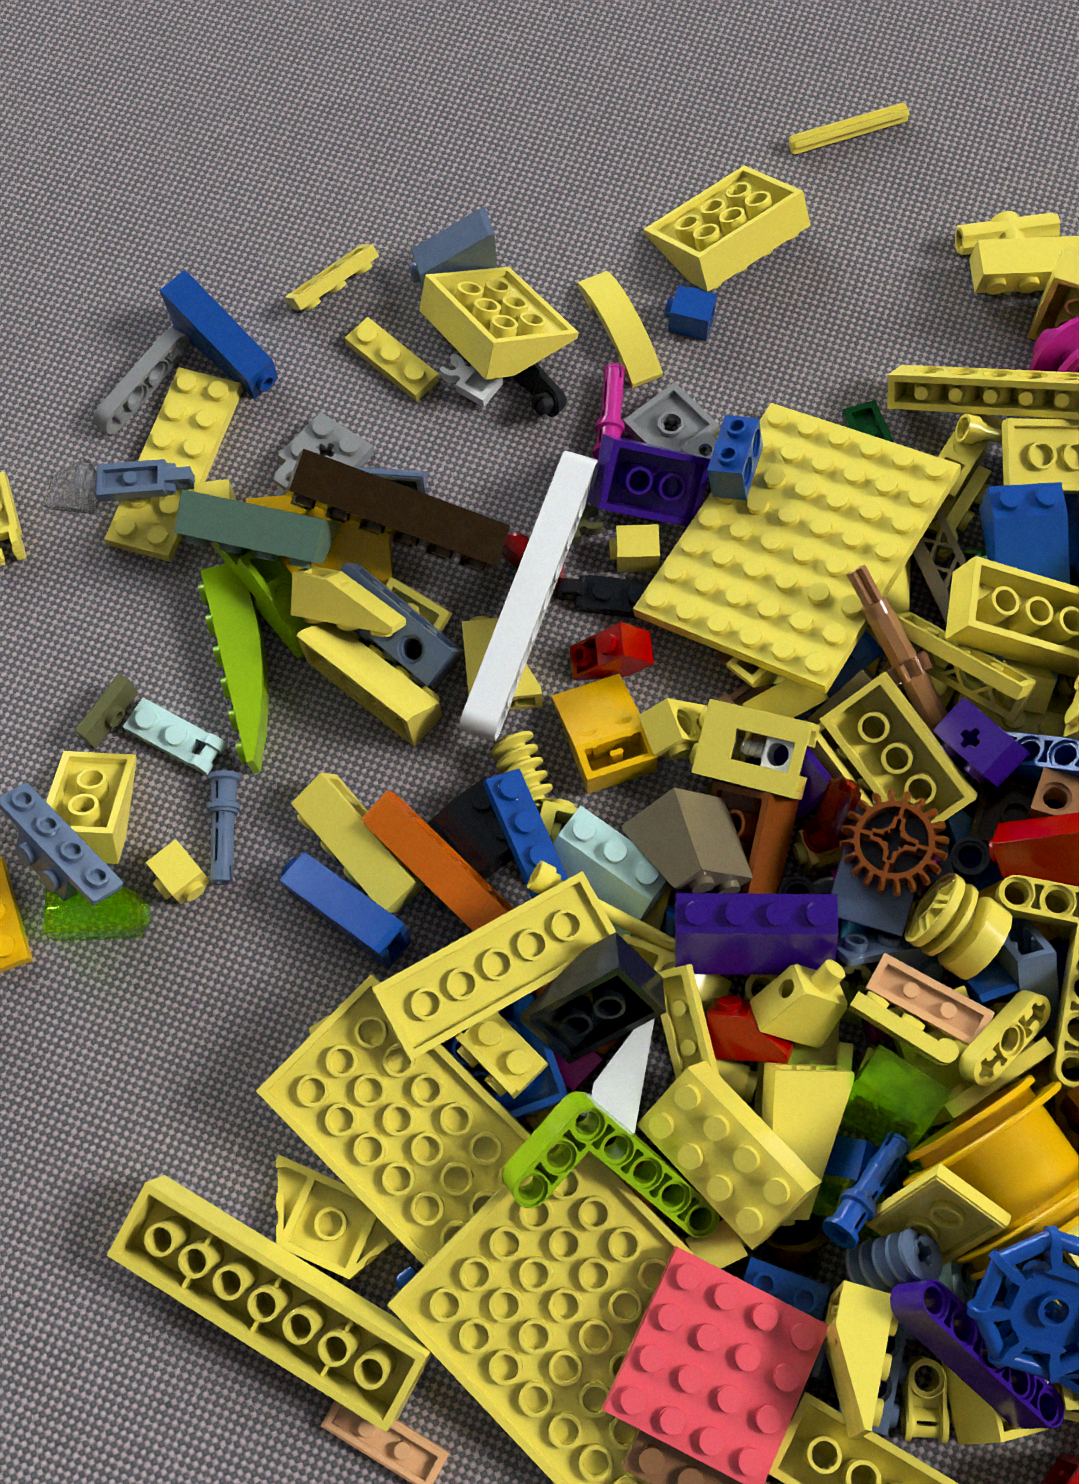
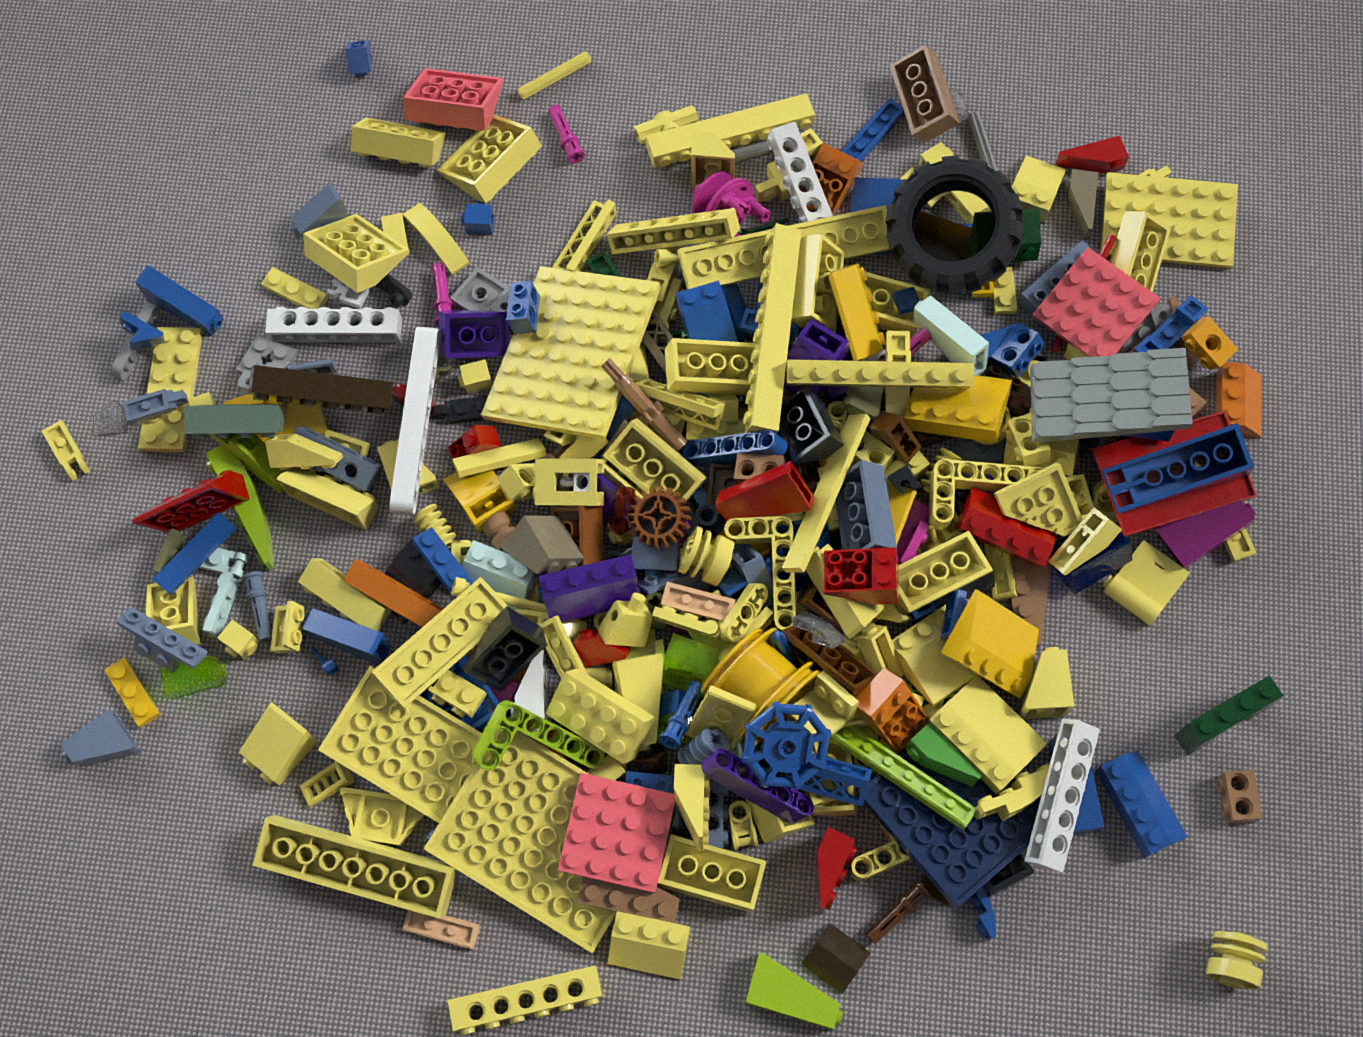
camera: 15 degrees left, 0 degrees up
(145, 721) = (194, 553): none -> blue tile
(155, 372) = (145, 334): none -> blue slope
(165, 810) = (221, 605): none -> light aqua hinge
(166, 644) = (196, 503): none -> red slope
(194, 1060) = (276, 745): none -> light yellow slope
(257, 873) = (287, 628): none -> light yellow bracket
(281, 1136) = (344, 781): none -> light yellow slope
(306, 949) = (328, 666): none -> blue hand
(332, 278) = (243, 246): light yellow plate -> none
(450, 435) = (365, 332): none -> white brick
(562, 297) = (394, 227): none -> light yellow tile
(564, 46) = (359, 58): none -> blue slope
(593, 175) = (397, 142): none -> light yellow slope
(623, 797) = (498, 529): none -> medium nougat wheel
(647, 682) = (499, 457): none -> light yellow tile
(690, 131) = (453, 99): none -> coral slope
(852, 226) = (568, 141): none -> dark pink pin
(859, 379) = (592, 238): none -> light yellow fence
(980, 742) = (700, 447): dark purple brick -> none
(1064, 1114) = (784, 648): none -> axle

